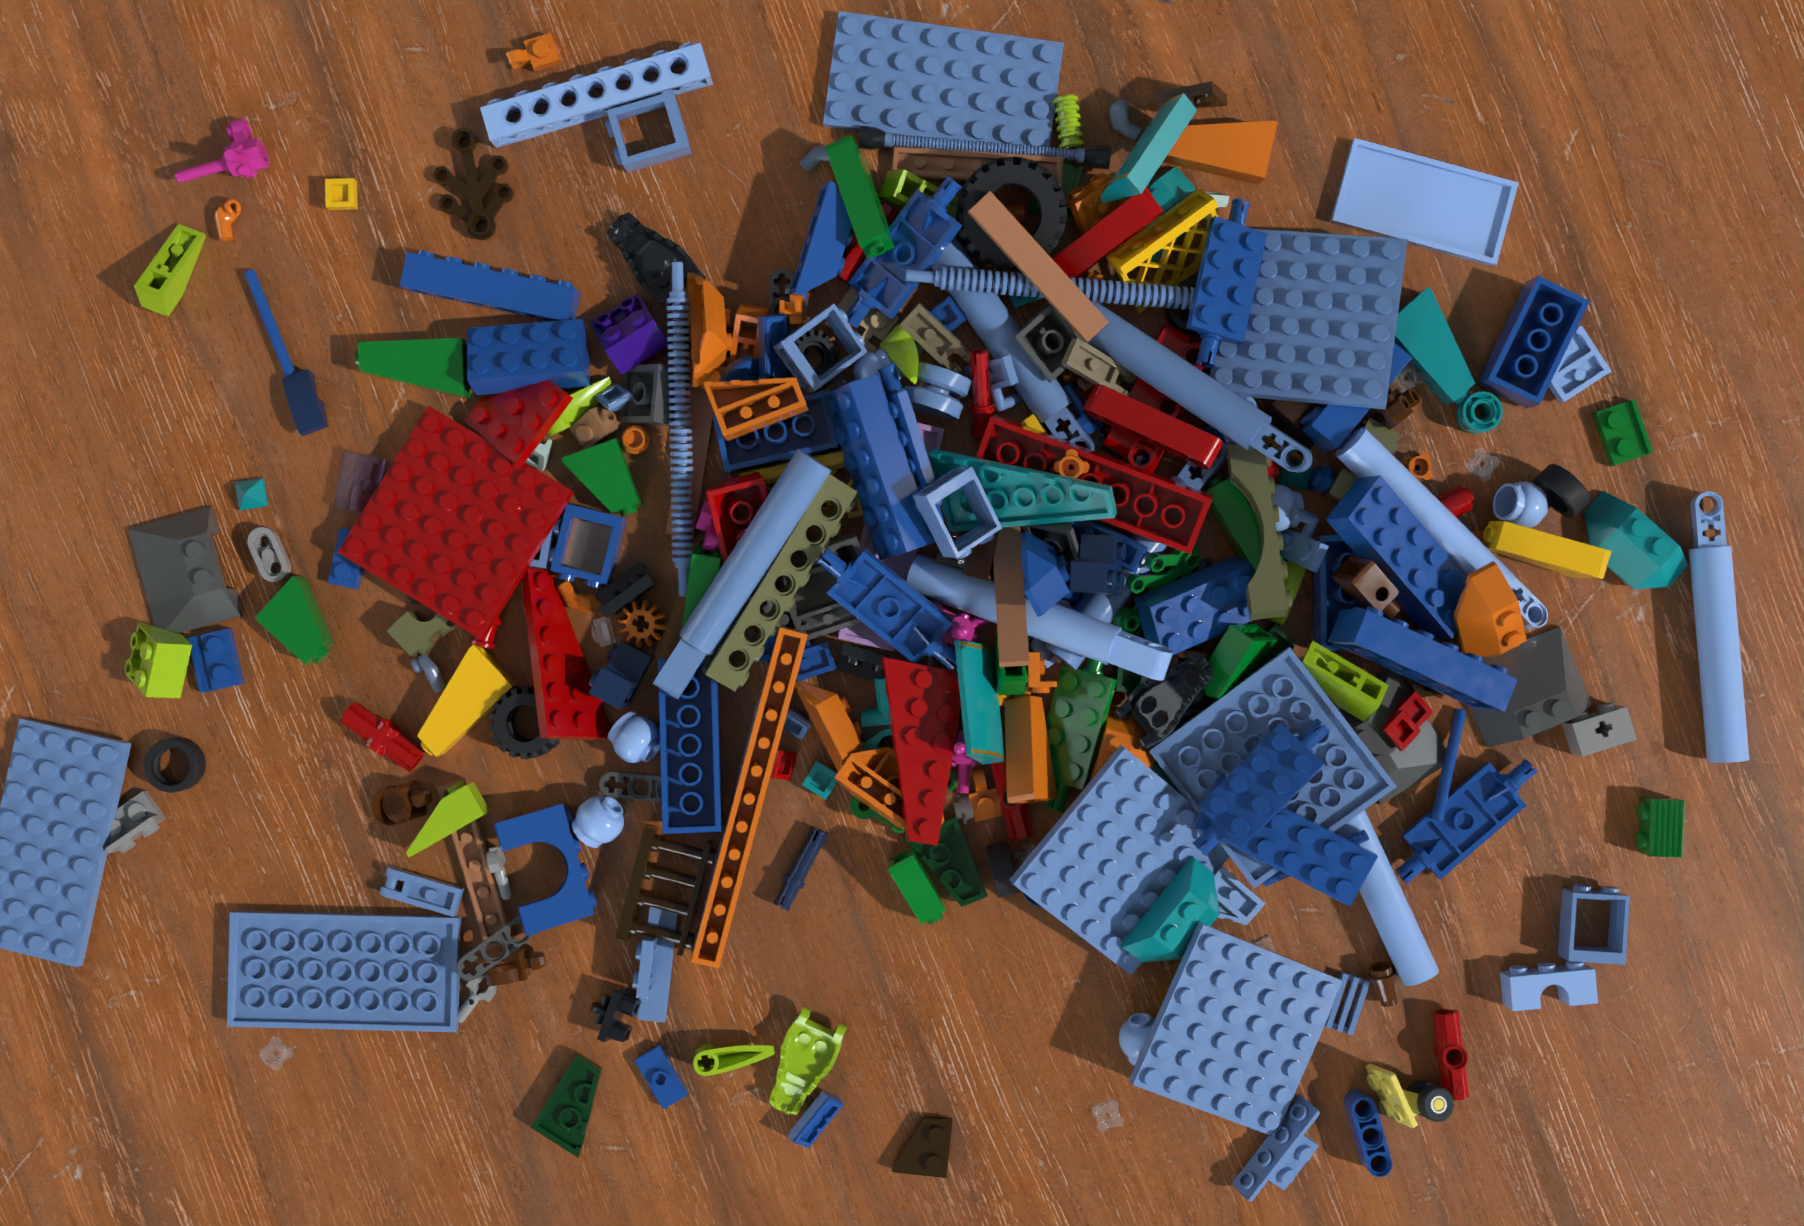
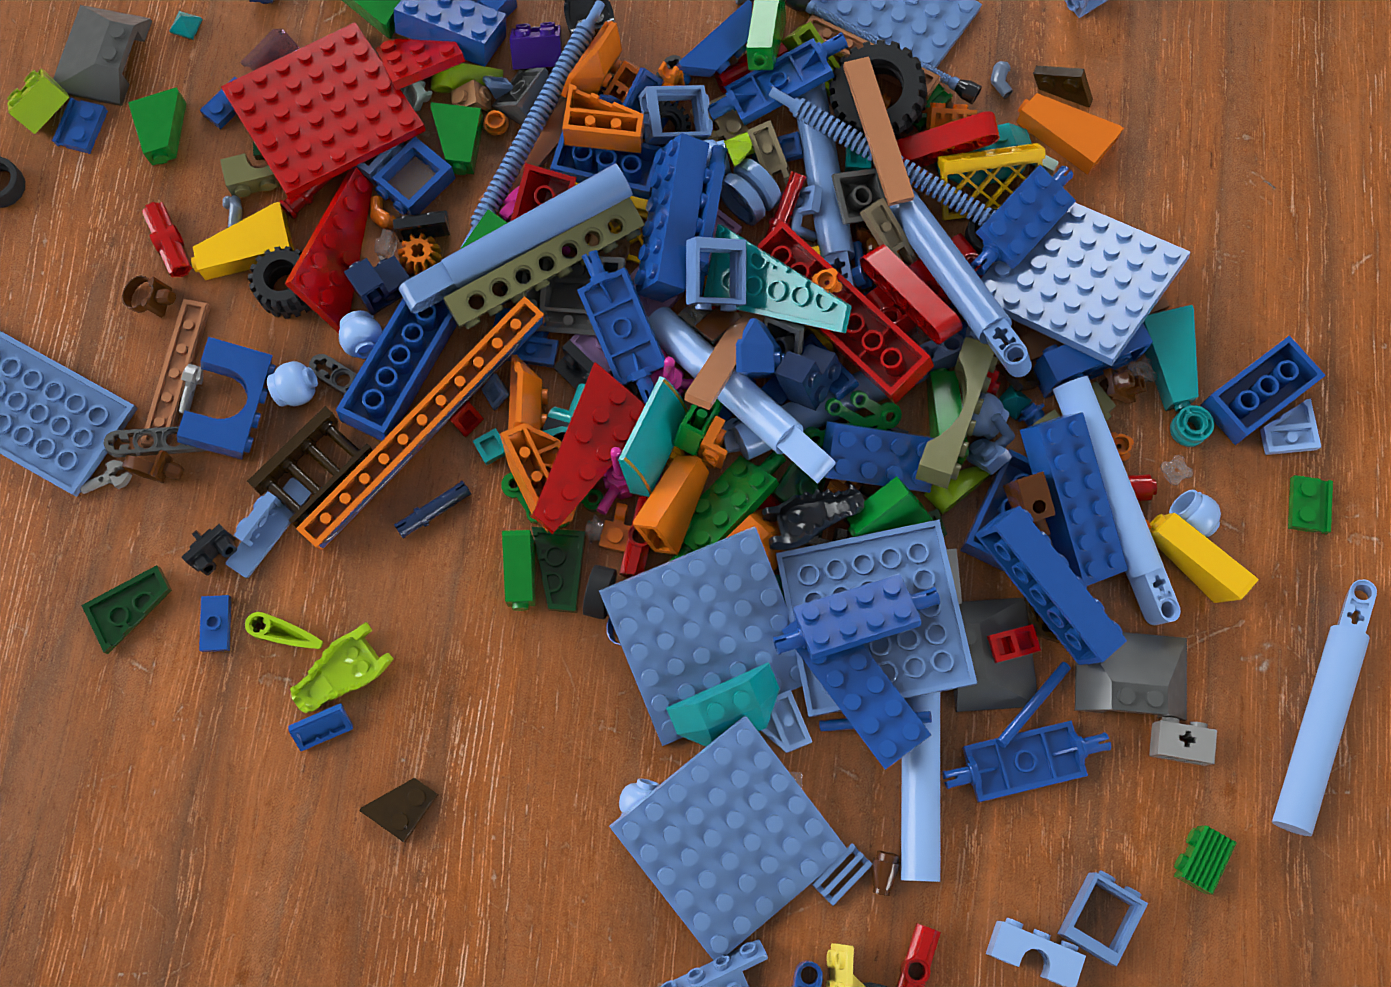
camera: 25 degrees right, 15 degrees down
(268, 556) = (168, 71): light grey plate -> none
(422, 891) = (120, 372): medium blue plate -> none
(452, 813) = (176, 321): lime slope -> none
(1068, 118) = (958, 56): lime piece -> none
(1102, 1109) = (571, 855): clear plate -> none
(1150, 149) = (1009, 91): teal slope -> none
(1344, 682) = (973, 578): lime slope -> none
(1424, 202) = (1222, 247): light blue tile -> none
(1488, 614) = (1127, 580): orange wedge -> none
(1562, 490) = (1238, 519): black tyre -> none
(1639, 549) = (1284, 600): teal wedge -> none

